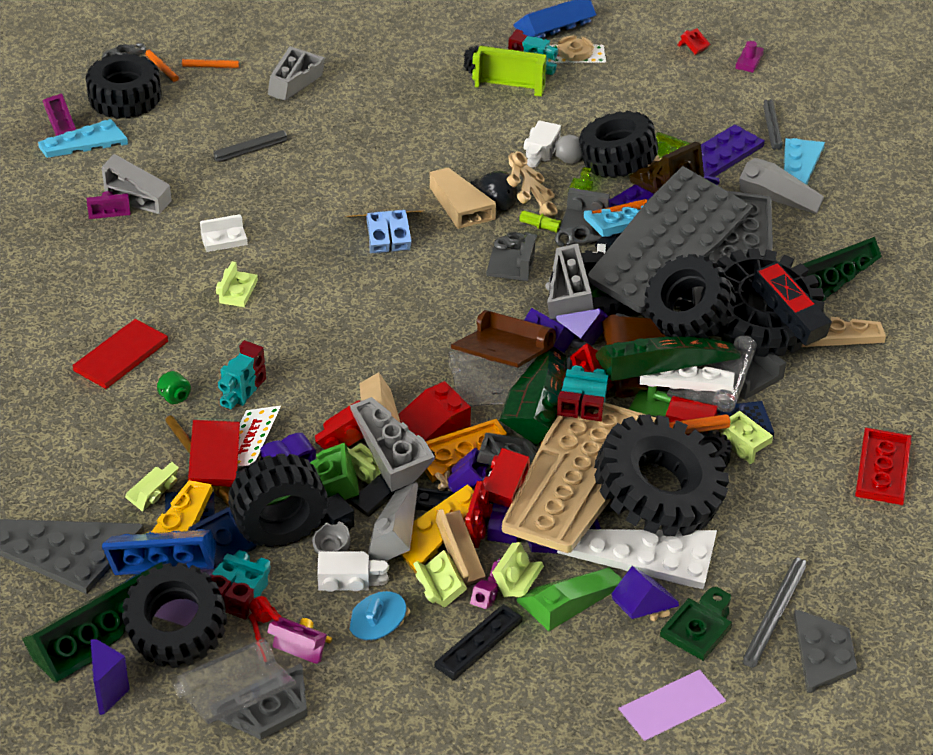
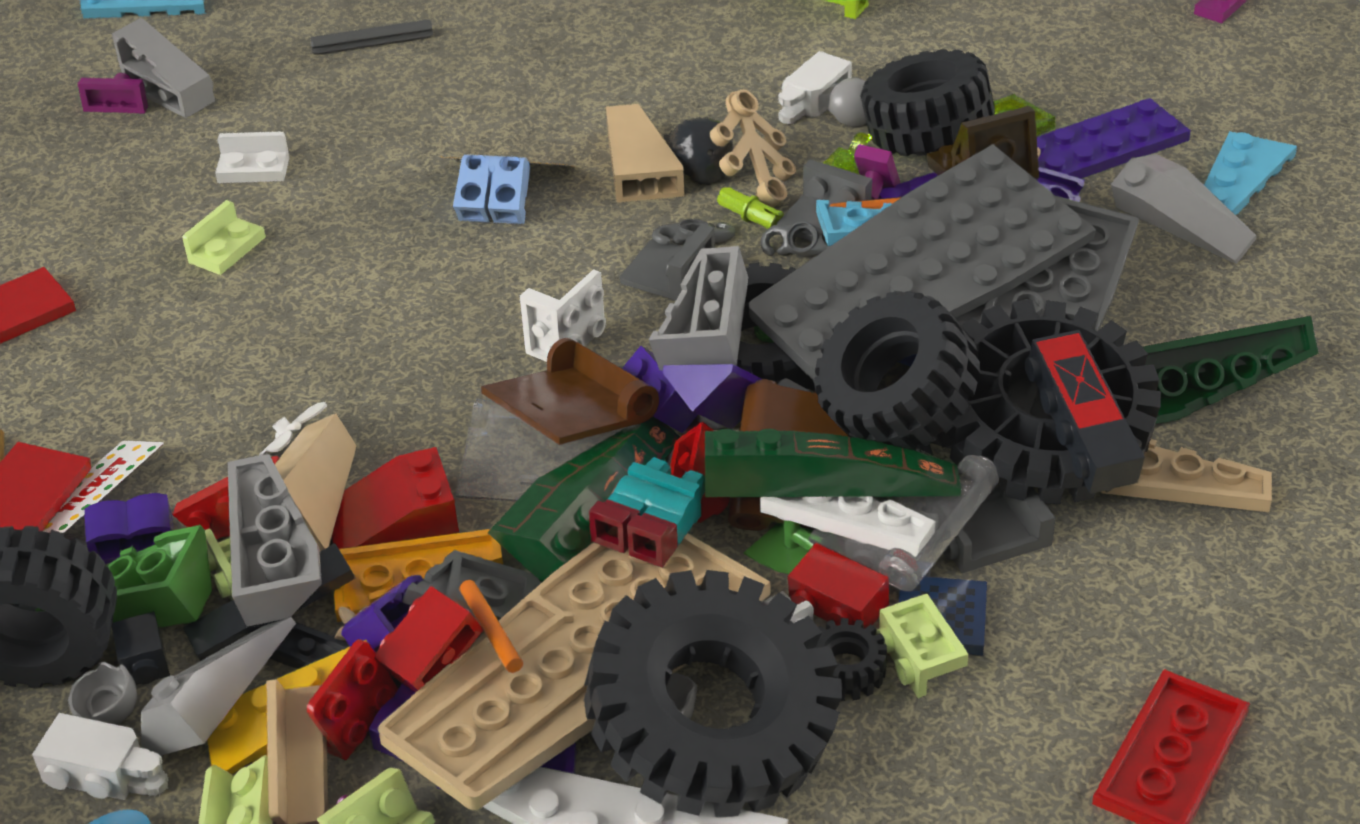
camera: 20 degrees right, 0 degrees up
(173, 387) = (25, 381): green head -> none
(242, 375) = (129, 382): teal hips -> none
(348, 390) = (285, 429): none -> white piece
(471, 302) = (574, 316): none -> white bracket
(538, 468) = (491, 626): none -> orange bar
(607, 185) = (877, 165): none -> magenta tile
(706, 423) = (840, 607): orange axle -> none
(772, 124) = (1217, 107): dark grey axle -> none

